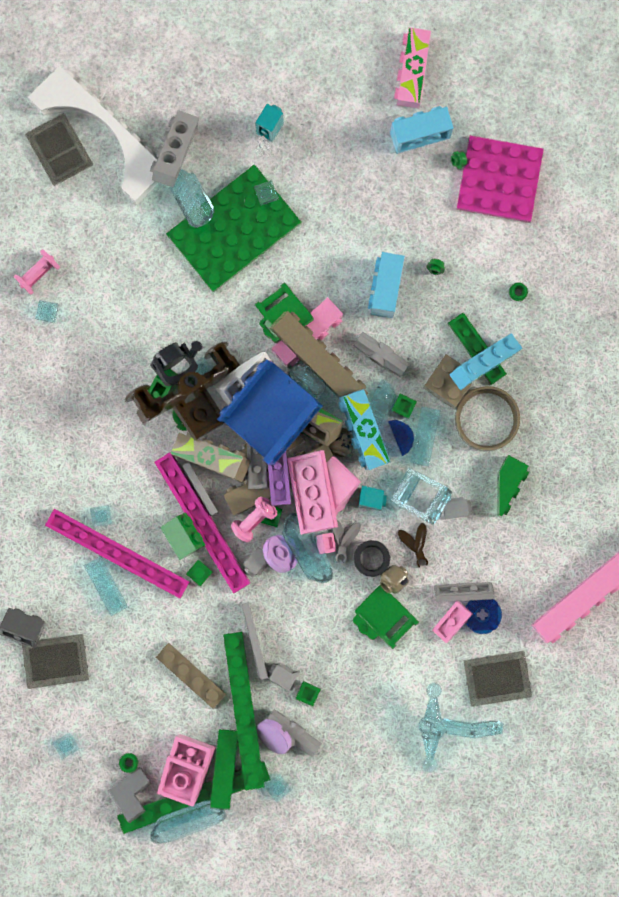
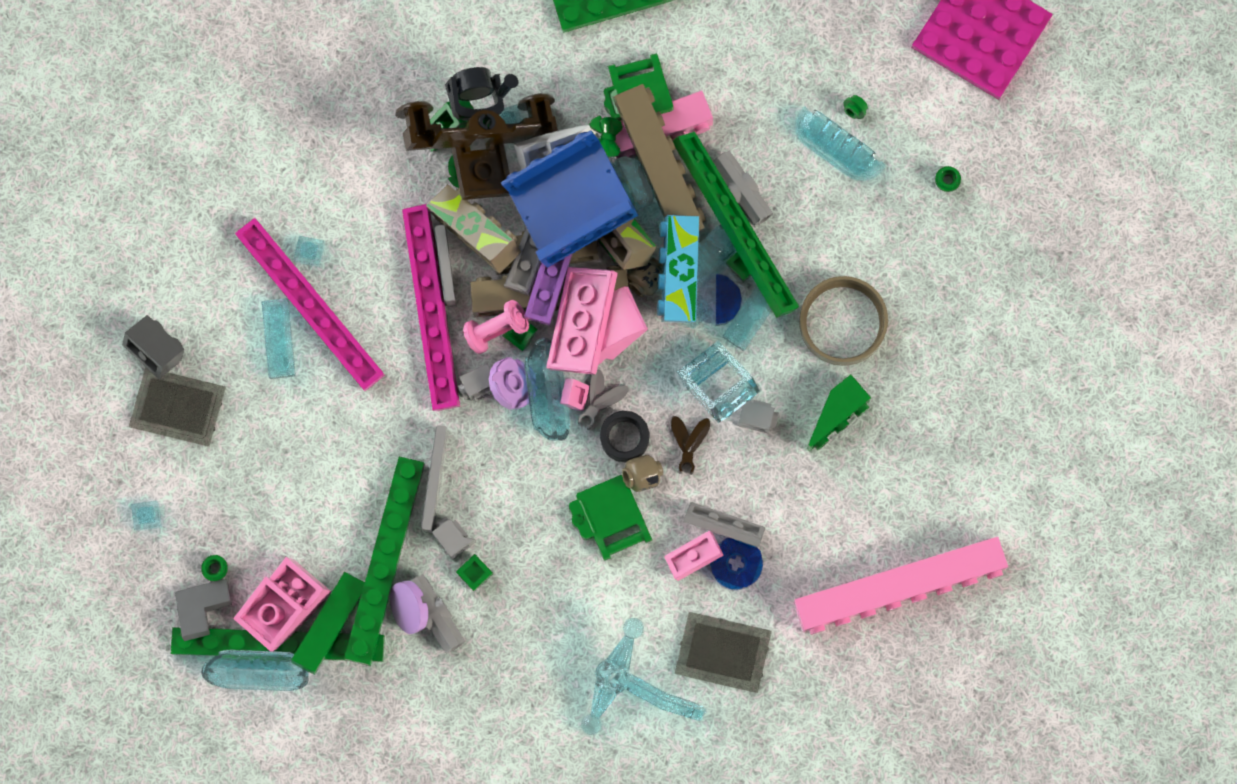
camera: 30 degrees right, 5 degrees down
(182, 536) = (399, 313): brick -> none
(191, 675) = (337, 492): dark tan plate -> none
(199, 573) = (401, 369): green plate -> none
(275, 350) = (609, 128): none -> green piece
(278, 788) = (387, 676): clear light blue plate -> none
(372, 498) = (654, 360): teal slope -> none
(386, 284) = (782, 103): medium azure brick -> none
(388, 382) = (735, 224): none -> green plate
(433, 298) = (836, 146): none -> clear light blue brick
(442, 385) = (814, 255): dark tan brick -> none
(473, 344) = (866, 229): green tile -> none
(485, 361) = (868, 244): medium azure brick -> none

